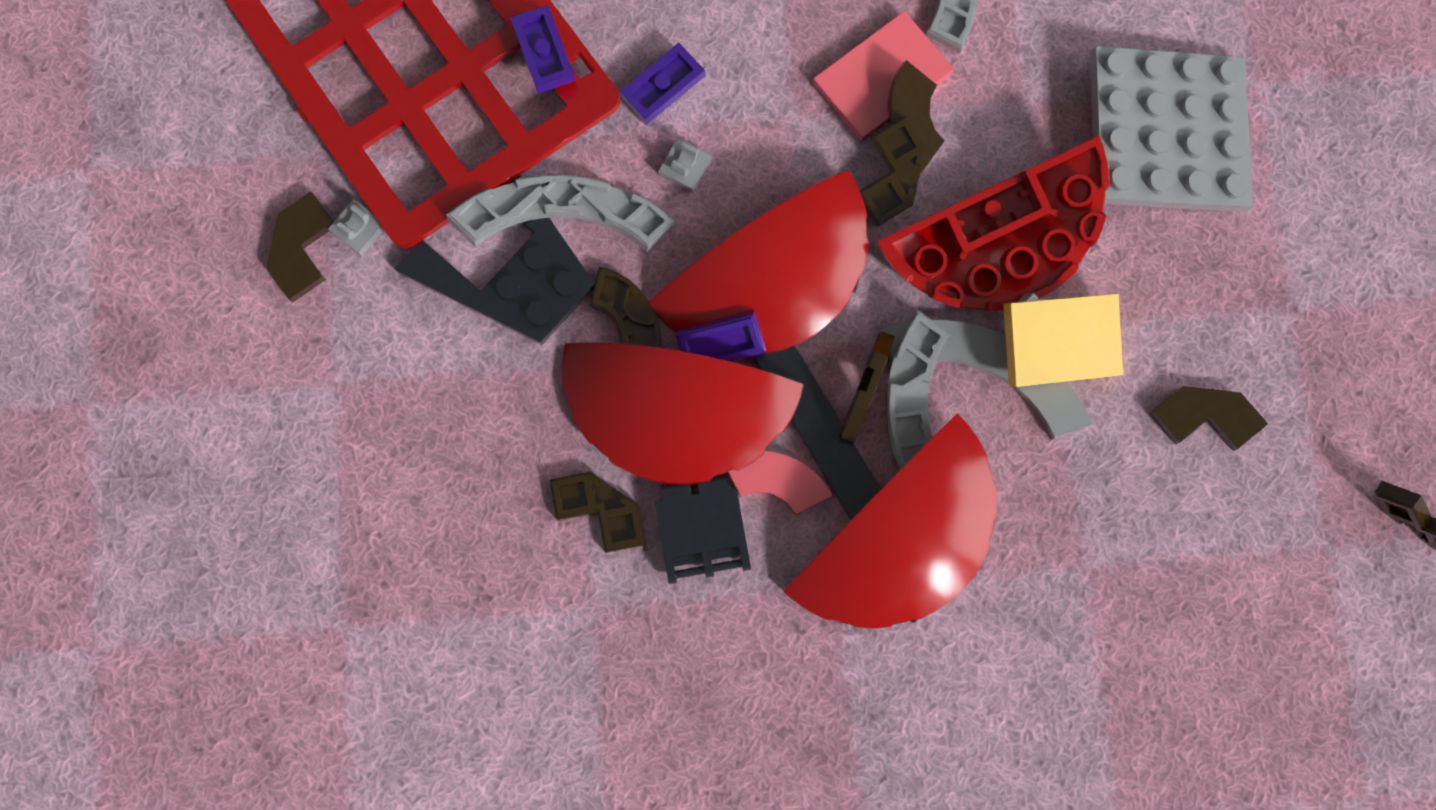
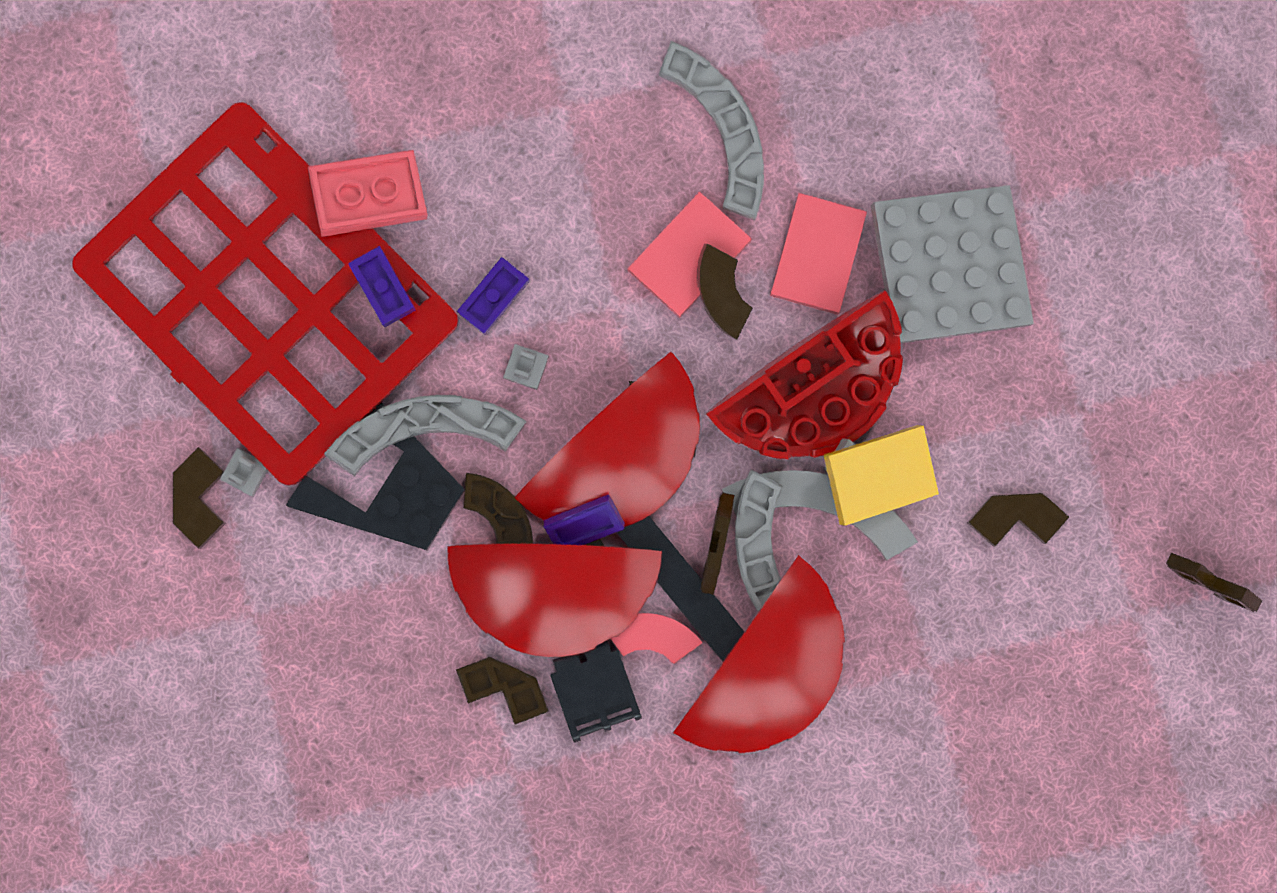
camera: 10 degrees left, 5 degrees up
(905, 156) = (717, 359): dark brown tile -> none
(1024, 97) = (818, 253): none -> coral tile

